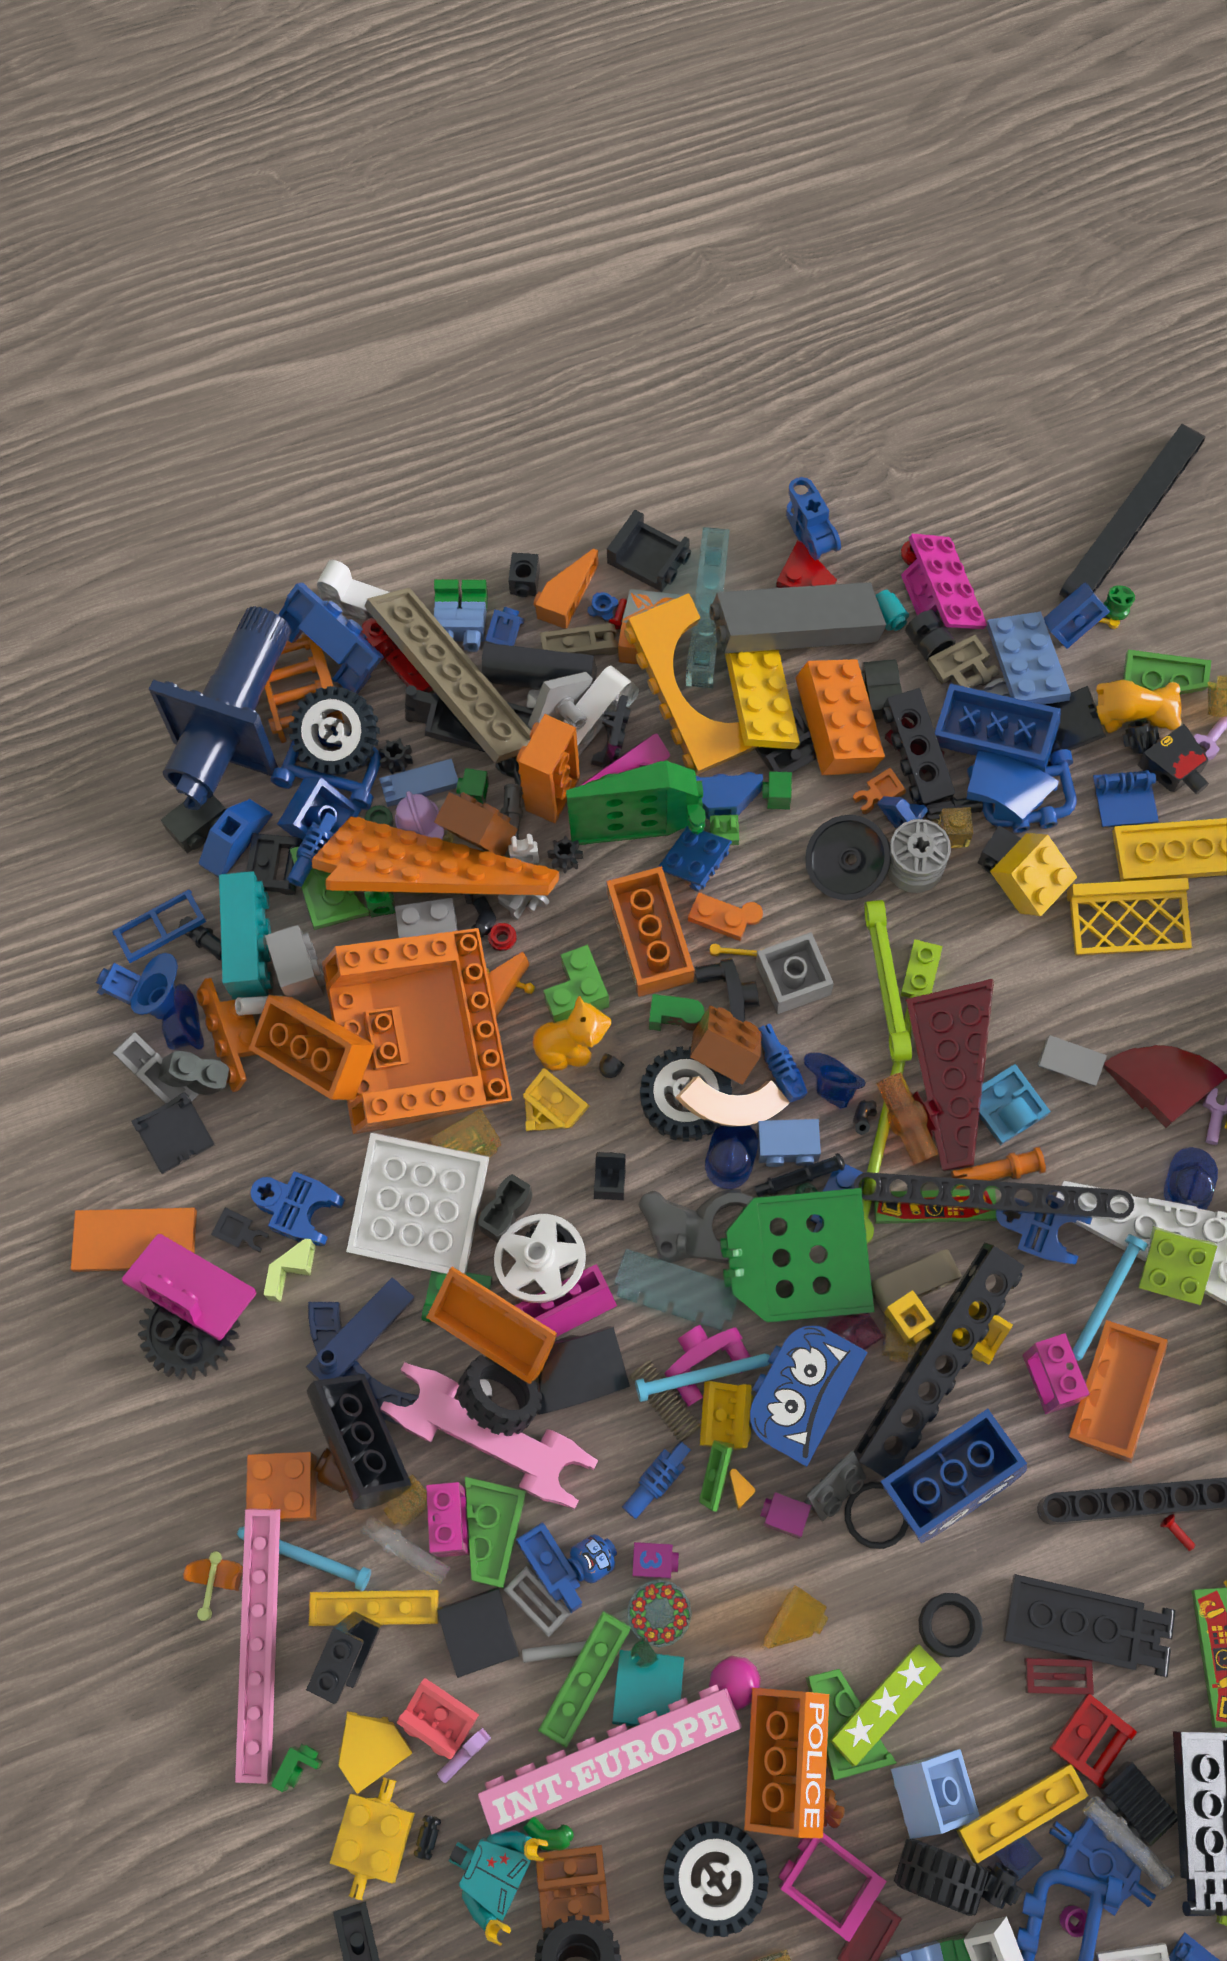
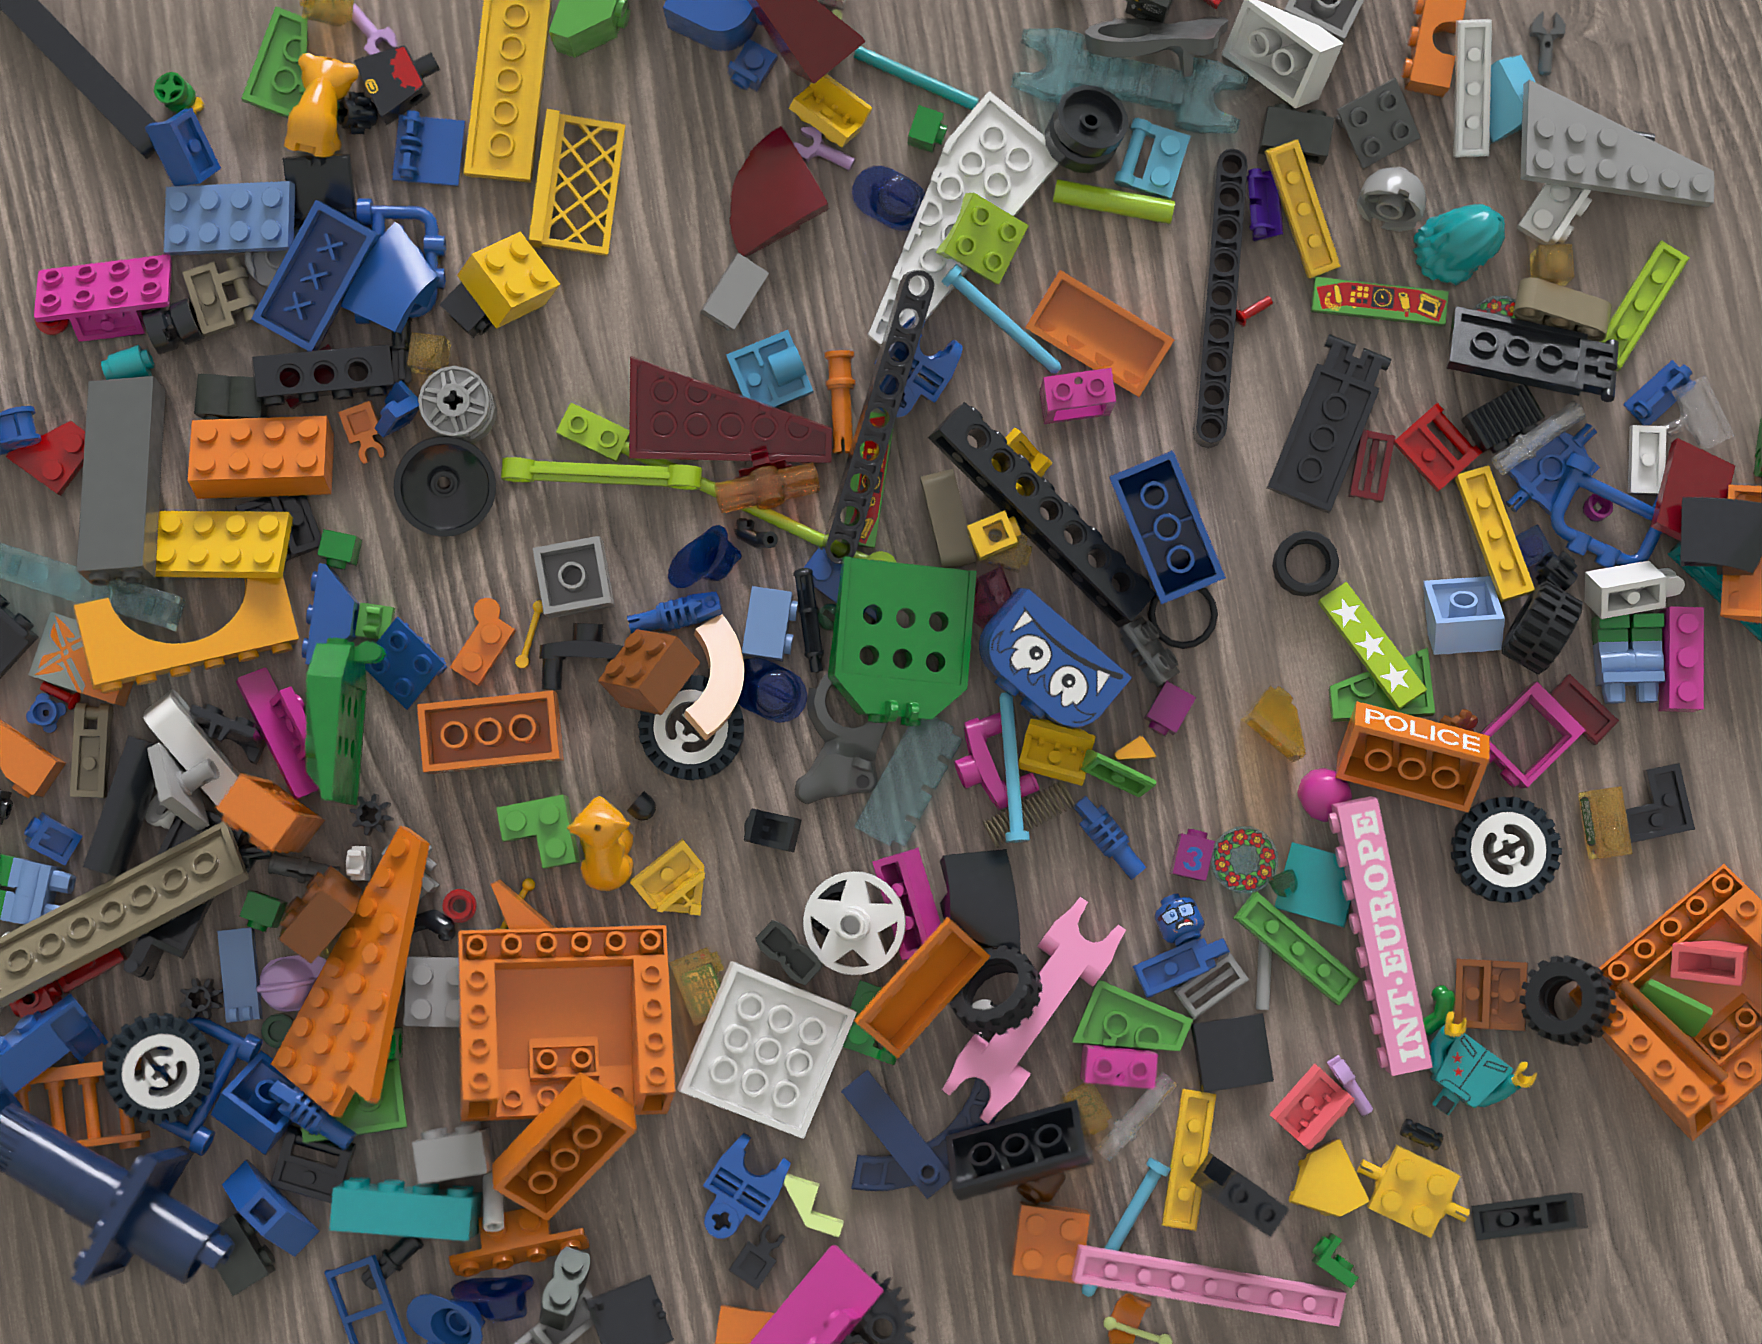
camera: 80 degrees left, 15 degrees up
(675, 1012) = (590, 721): green leg -> none

